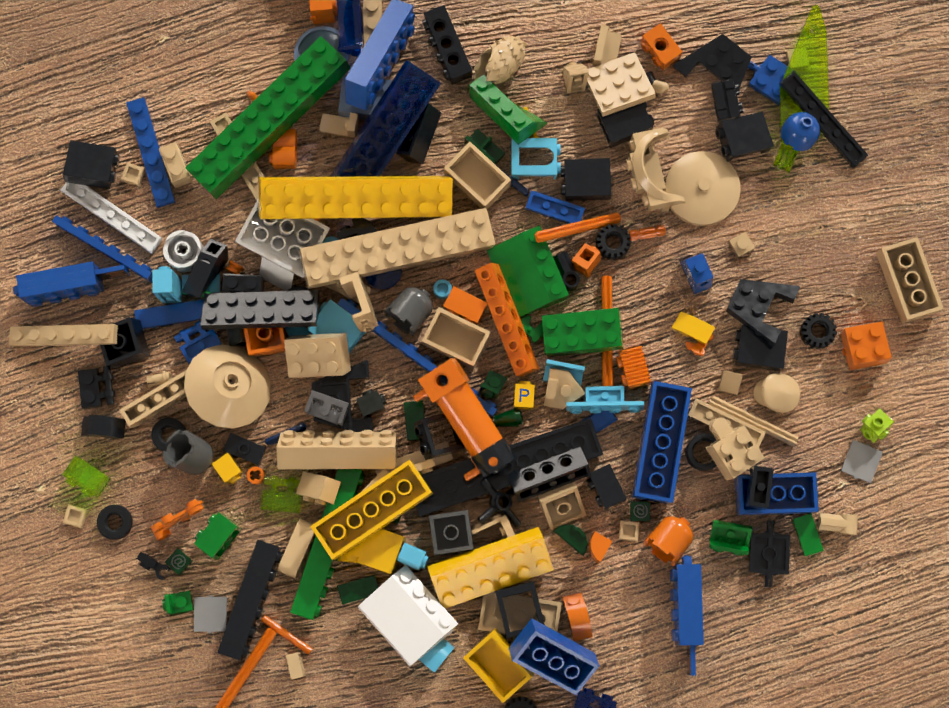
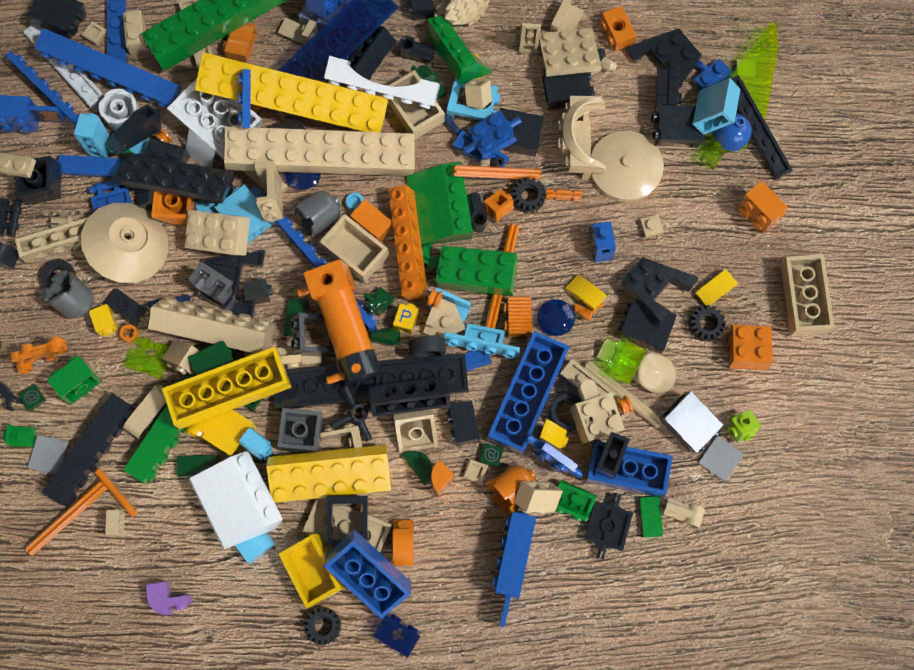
camera: 10 degrees right, 5 degrees down
(160, 210) = (107, 67): none -> blue brick
(314, 217) = (245, 98): none -> blue plate
(348, 485) = (211, 358): none -> dark green panel
(399, 163) = (339, 72): none -> white arch
(467, 117) = (417, 50): none -> black piece
(540, 151) = (478, 93): none -> tan brick
(549, 371) = (435, 298): none -> orange bush
(552, 420) = (427, 346): none -> black tyre
(564, 190) = (492, 134): none -> blue plate
(570, 218) = (494, 162): none -> black arm
(669, 360) = (556, 317): none -> clear blue dish
(695, 480) = (554, 435): none -> yellow slope
(697, 543) = (537, 497): none -> tan brick
(703, 501) = (558, 461): none -> blue plate
(748, 388) = (625, 360): none -> clear neon green brick
(758, 433) = (624, 405): none -> orange bush
(779, 110) = (716, 106): none -> medium azure brick
(820, 293) = (717, 288): none -> yellow slope
(825, 434) = (691, 422): none -> brick
(846, 202) = (762, 207): none -> orange brick

